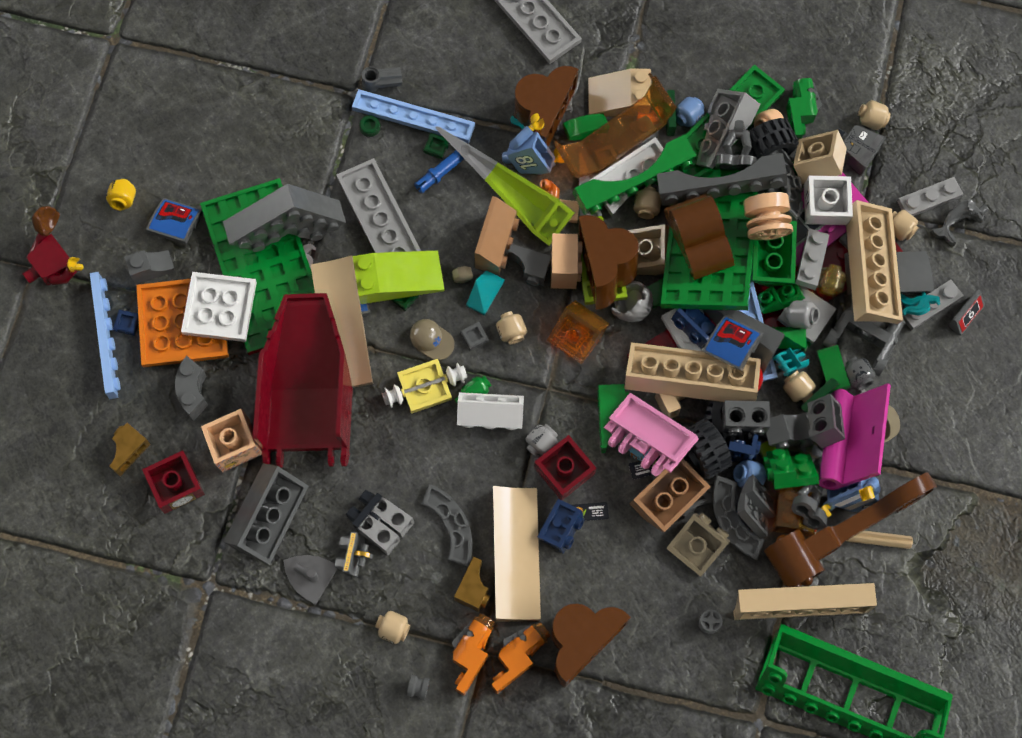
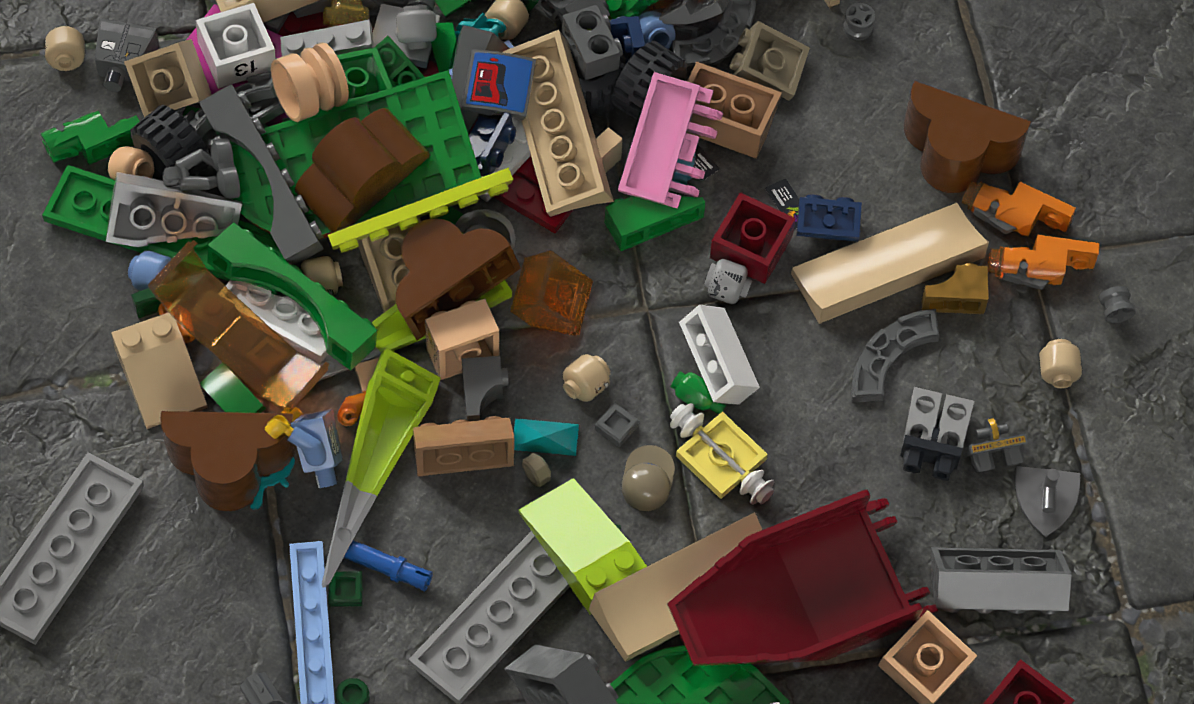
camera: 115 degrees left, 10 degrees down
(651, 253) = (433, 206): none -> neon yellow plate

